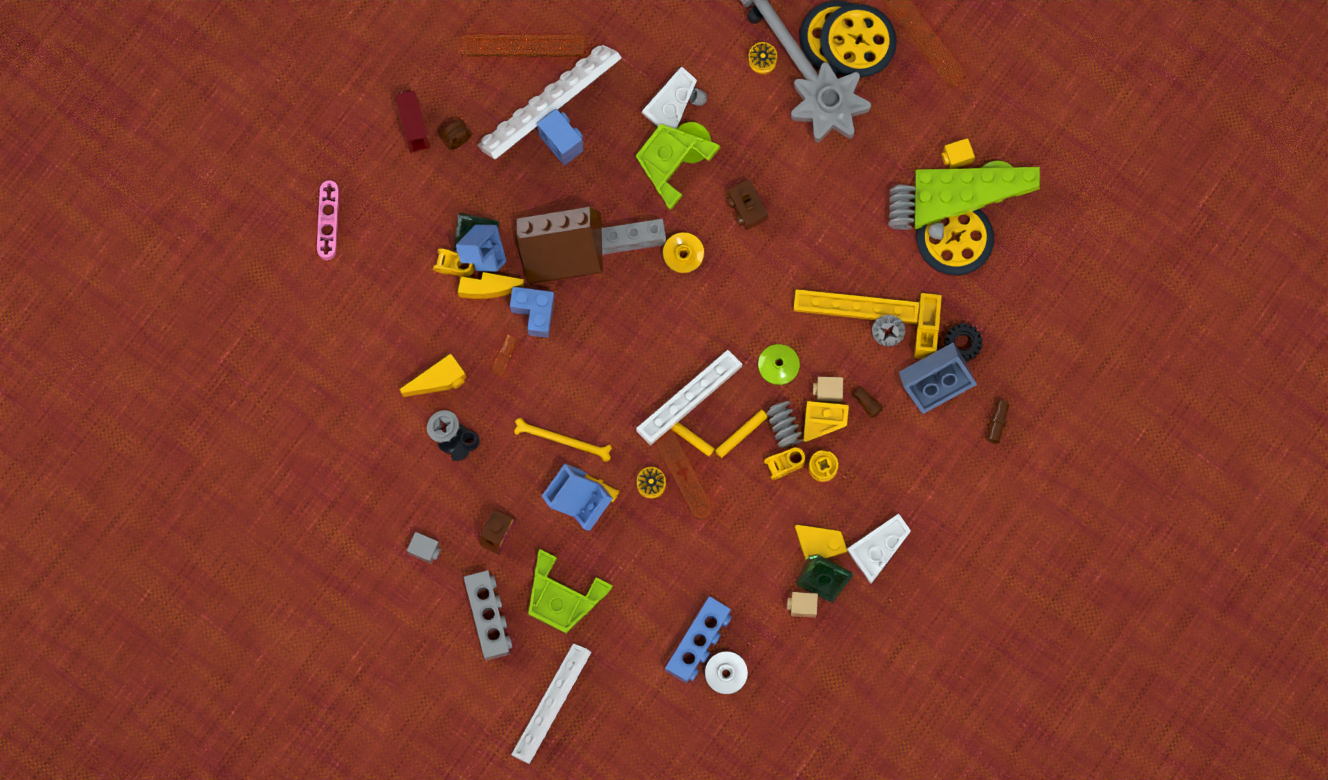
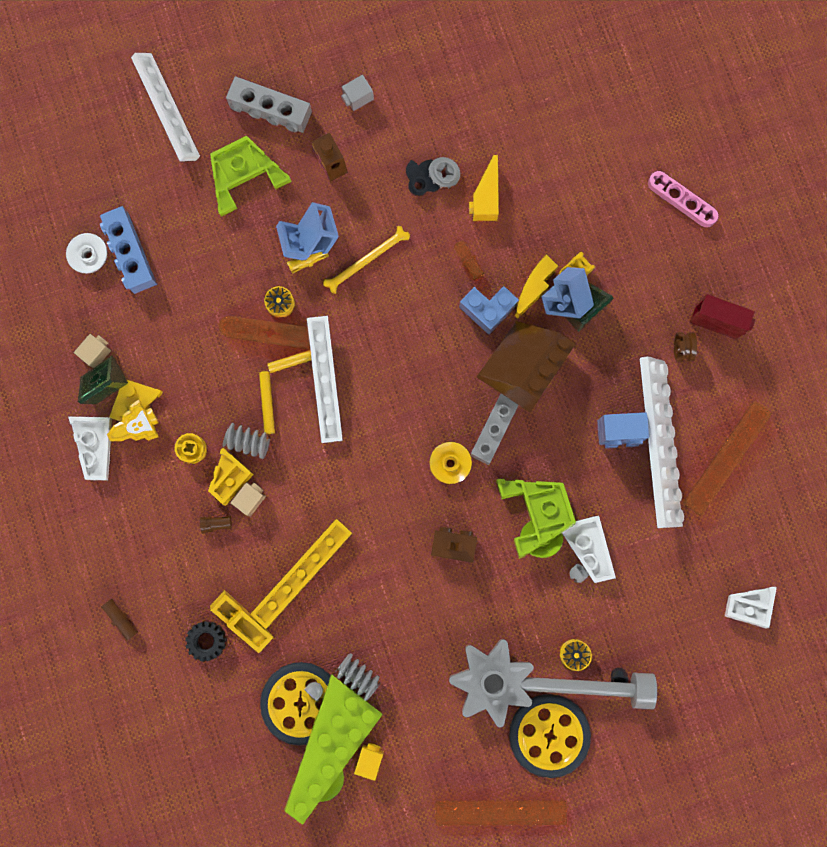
camera: 130 degrees right, 5 degrees up
(778, 374) = (306, 485): lime dish -> none
(783, 463) = (215, 415): yellow piece -> none
(837, 522) = (135, 424): none -> yellow rock
(857, 13) = (506, 764): wedge -> none
(886, 322) = (267, 587): light grey gear -> none
(937, 378) = (189, 594): sand blue slope -> none

